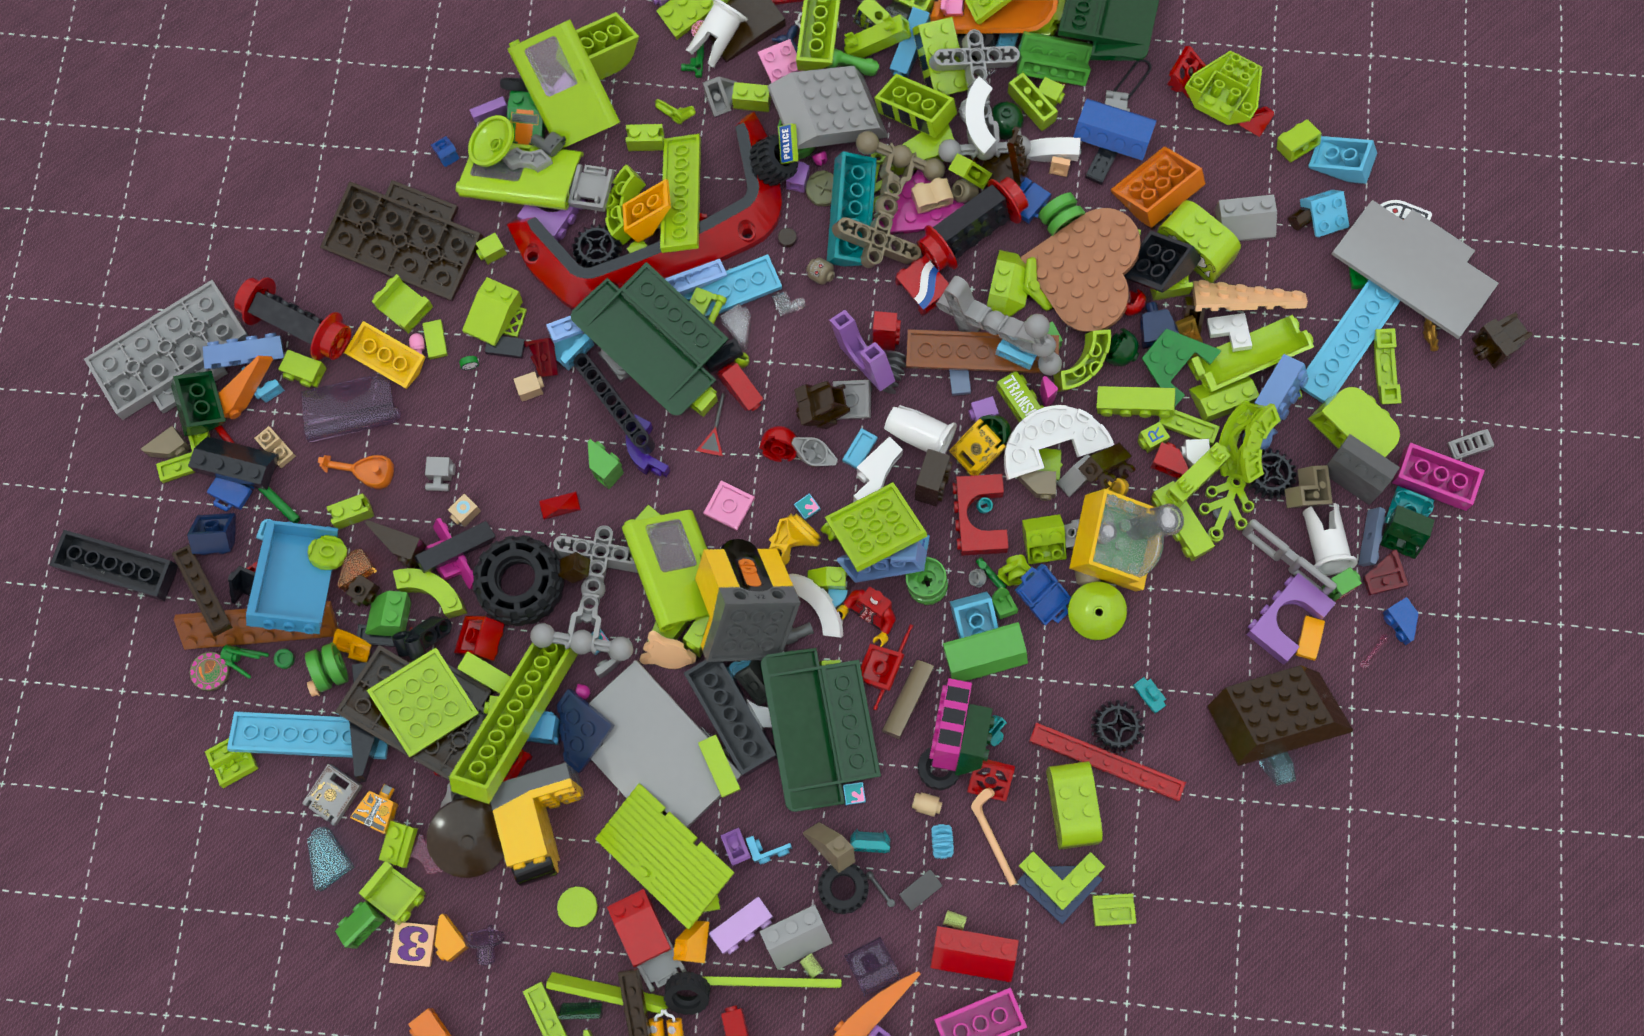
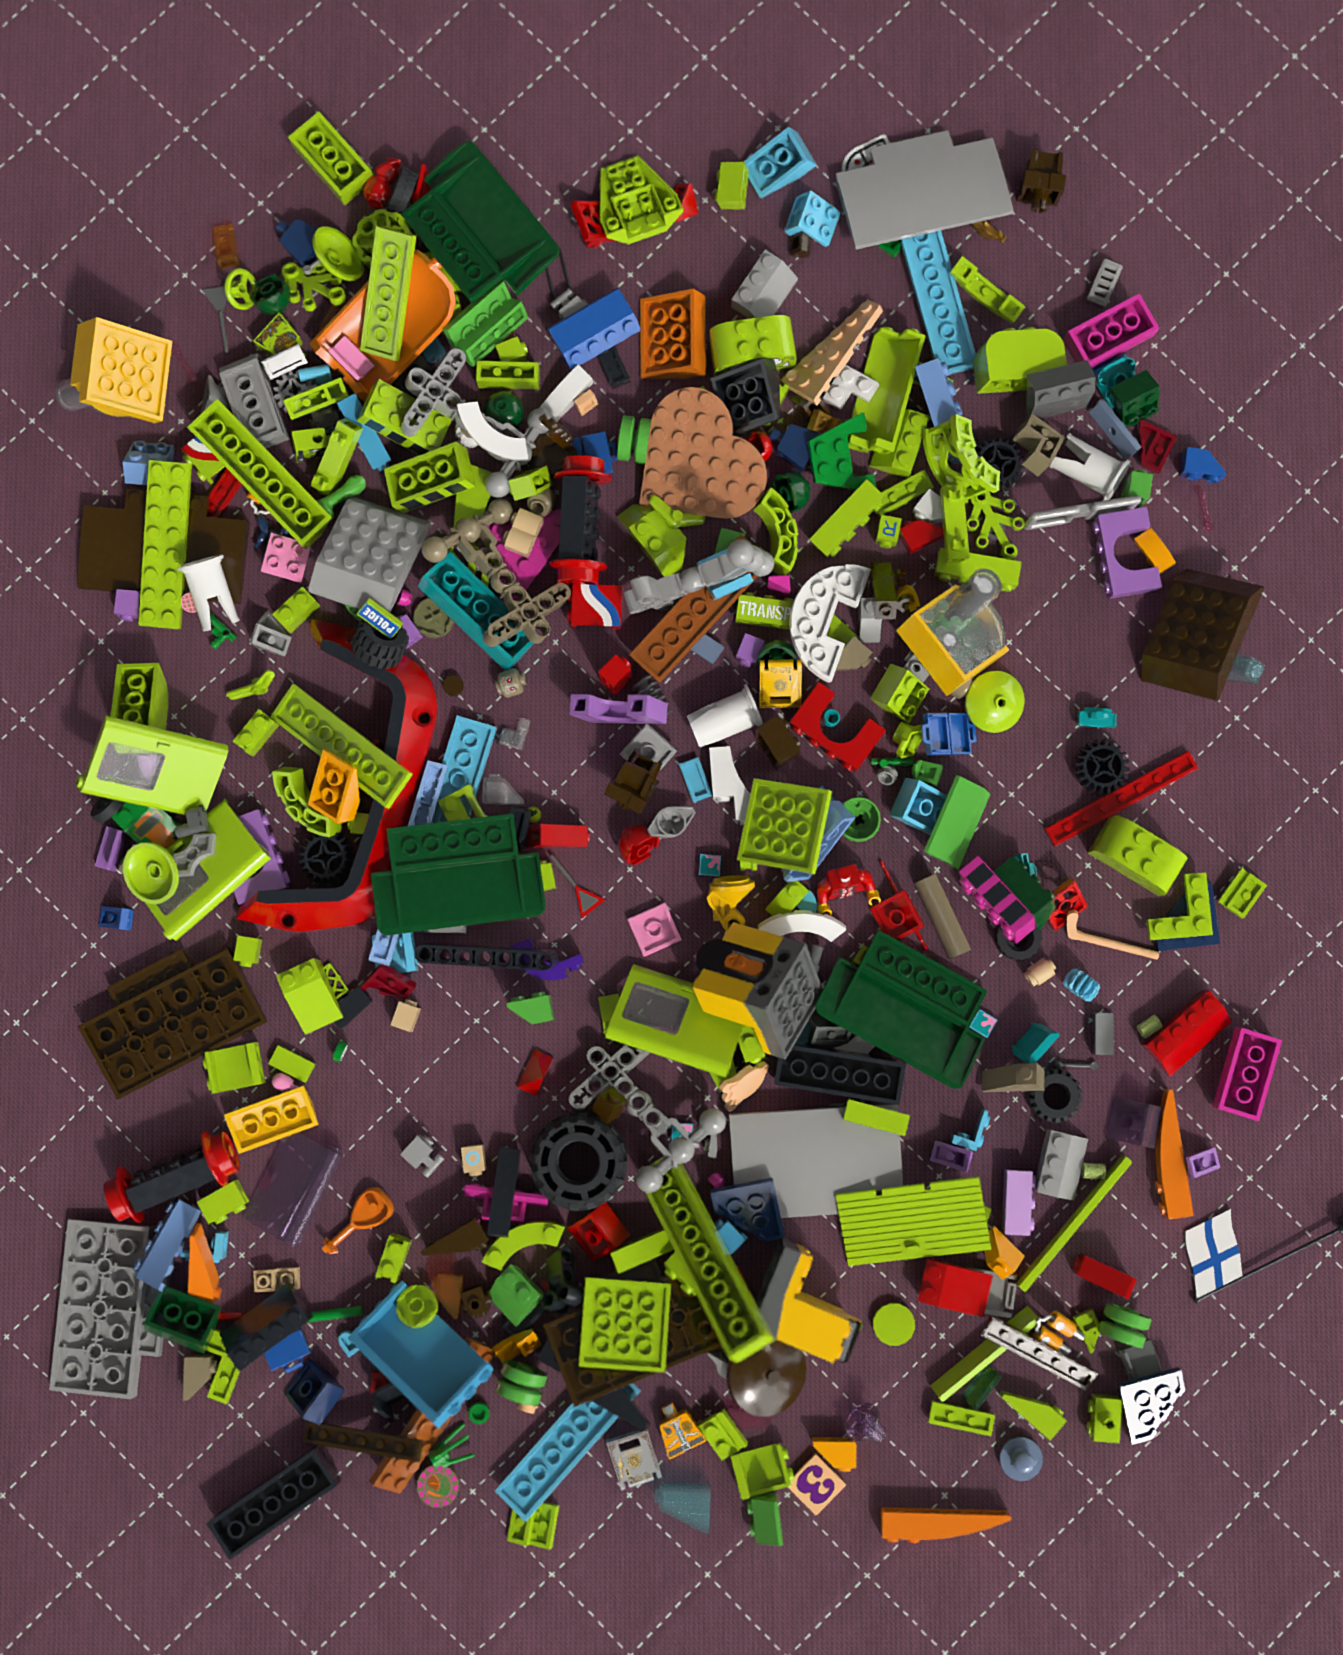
camera: 55 degrees left, 10 degrees up
(592, 185) = (265, 816): light grey container -> none
(691, 982) = (1039, 1290): black tyre -> none

